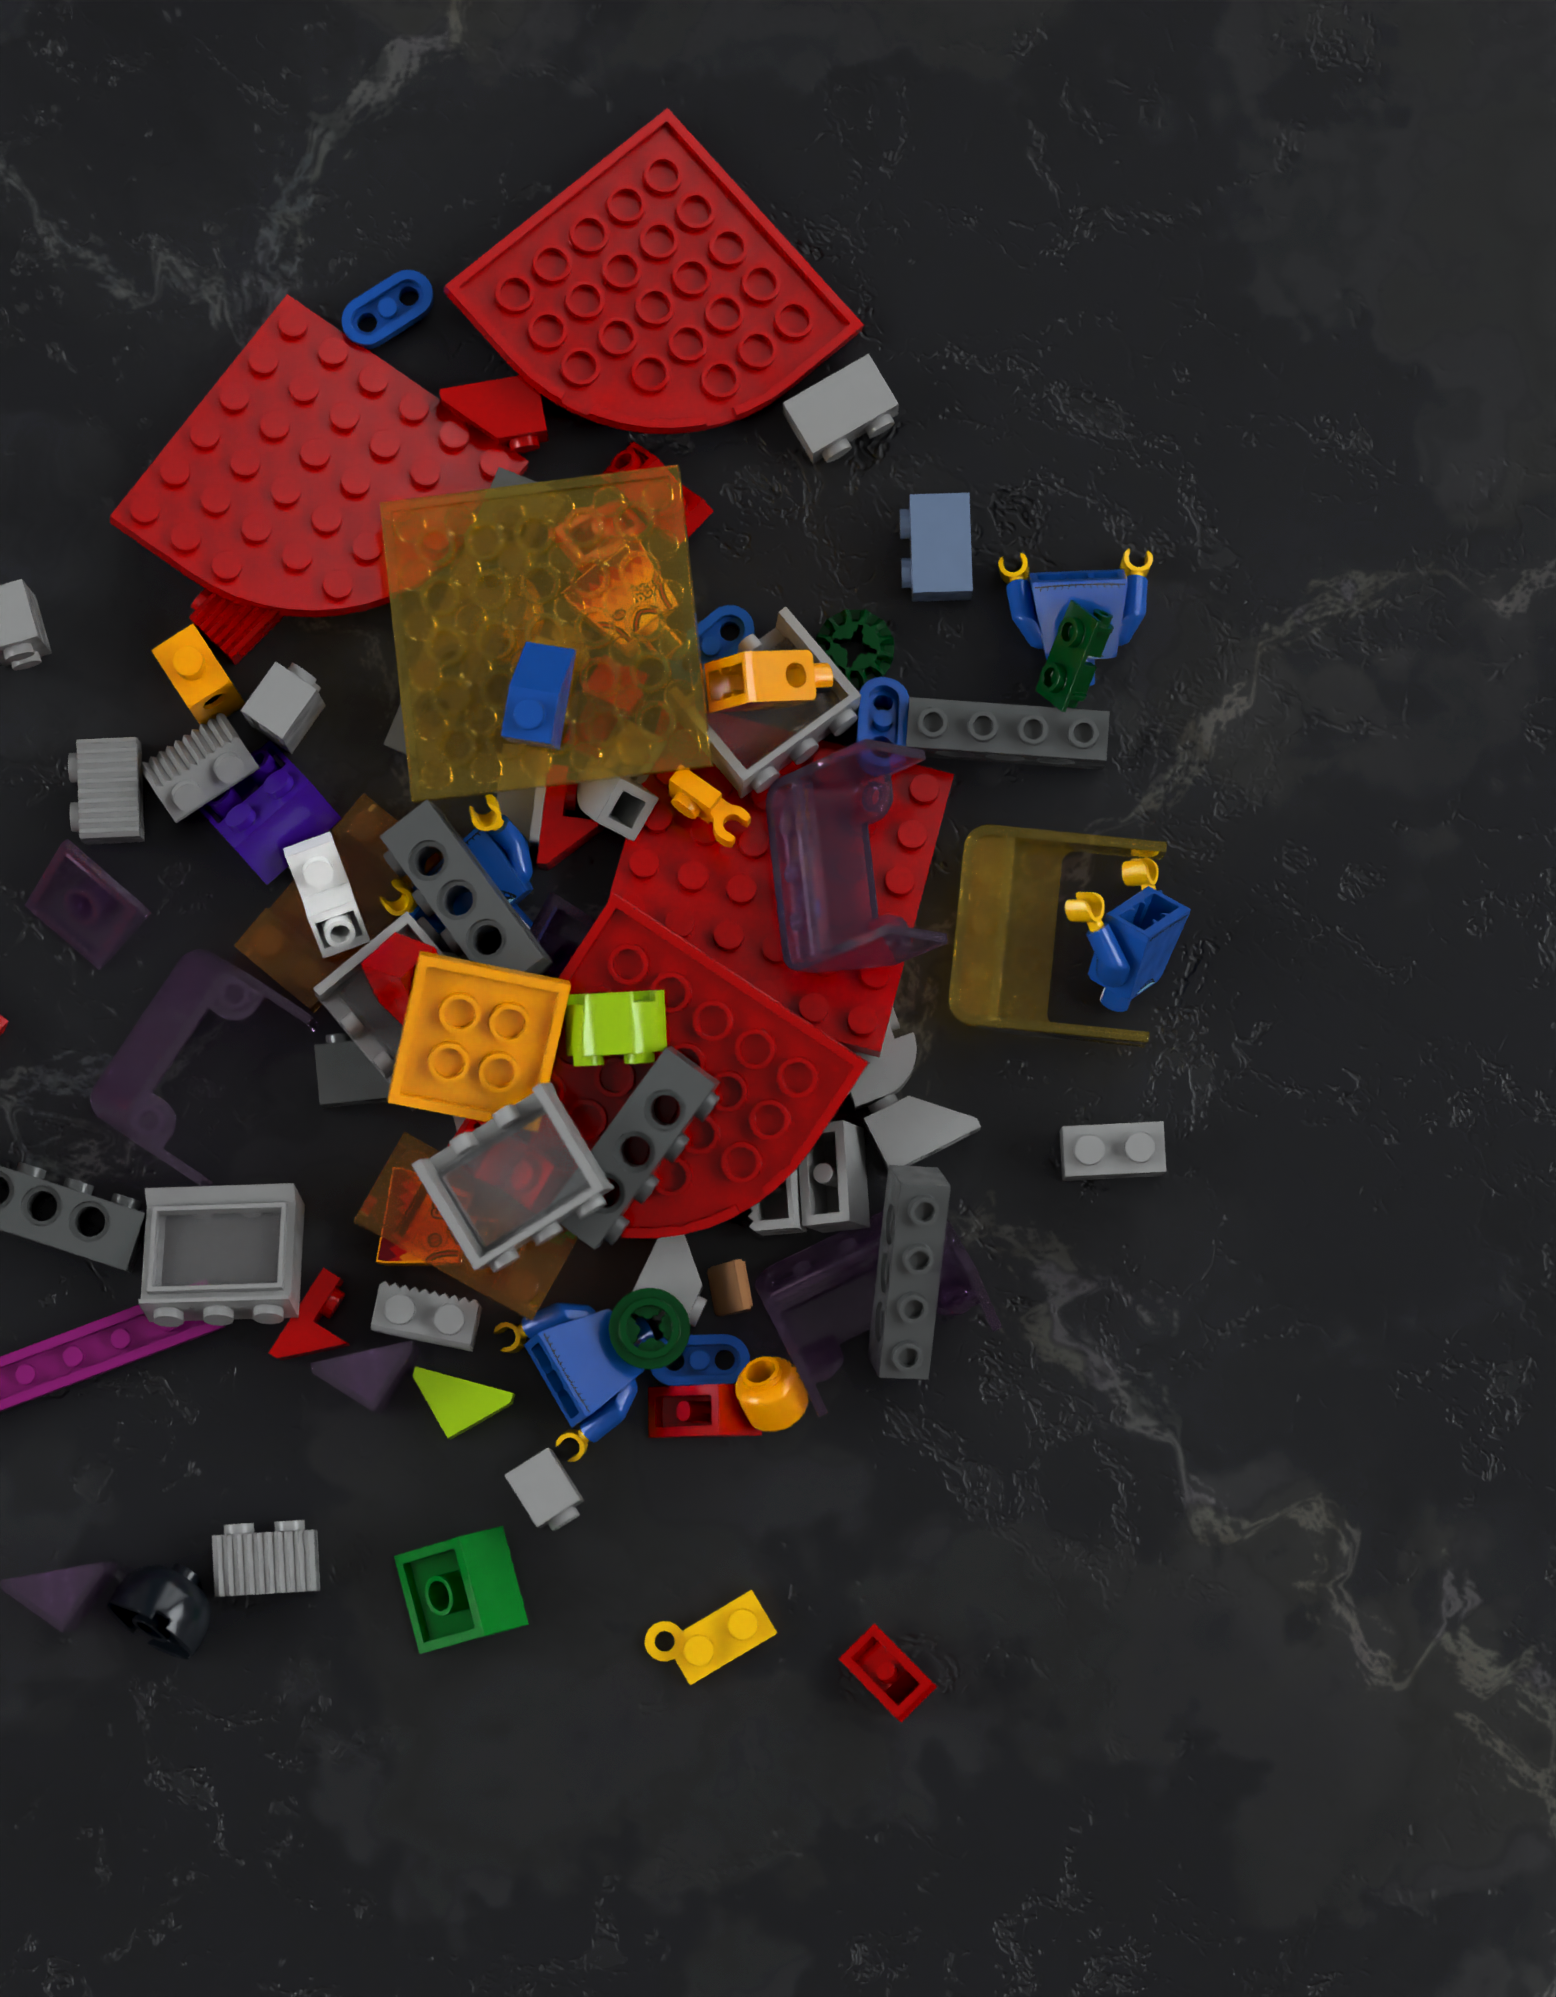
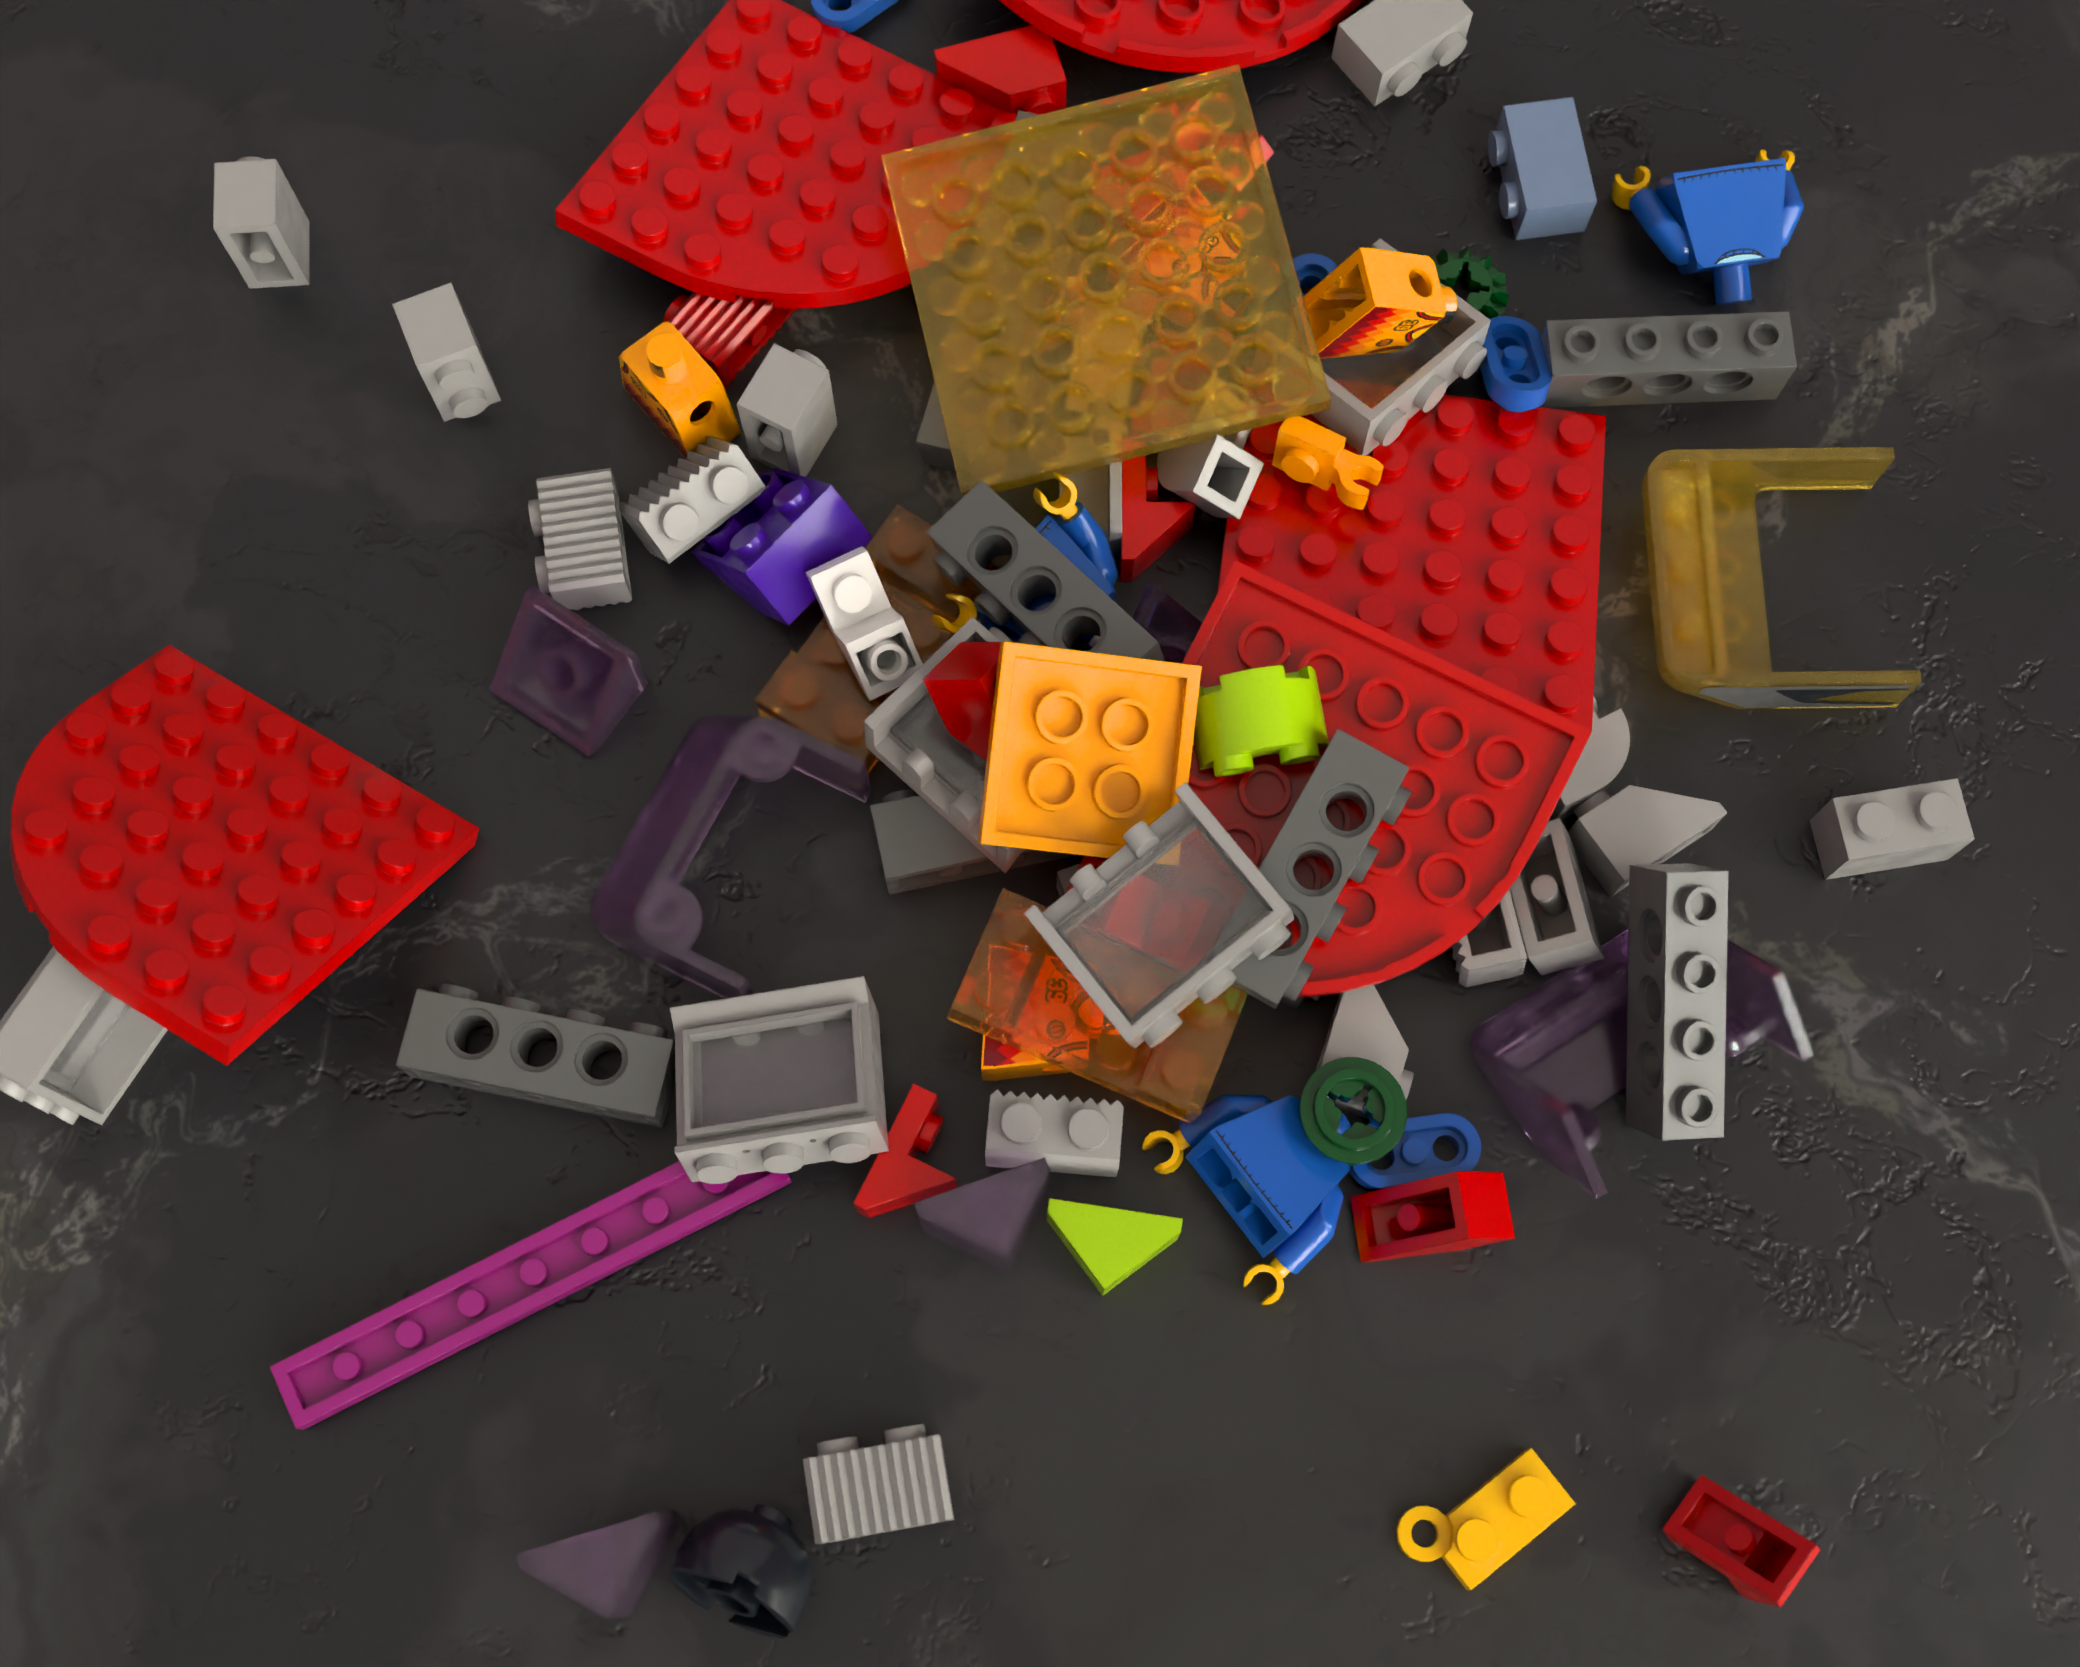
camera: 10 degrees left, 10 degrees down
(461, 1589) = (1145, 1495): green slope -> none
(539, 696) = (1107, 345): blue slope -> none
(545, 1490) = (1246, 1343): light grey brick -> none
(730, 1288) = (1440, 1055): medium nougat slope -> none
(771, 1393) = (1526, 1178): light orange head -> none
(826, 865) = (1476, 514): clear purple windscreen -> none
(1066, 672) = (1736, 236): dark green hinge -> none
(1135, 936) = (1874, 569): blue torso -> none

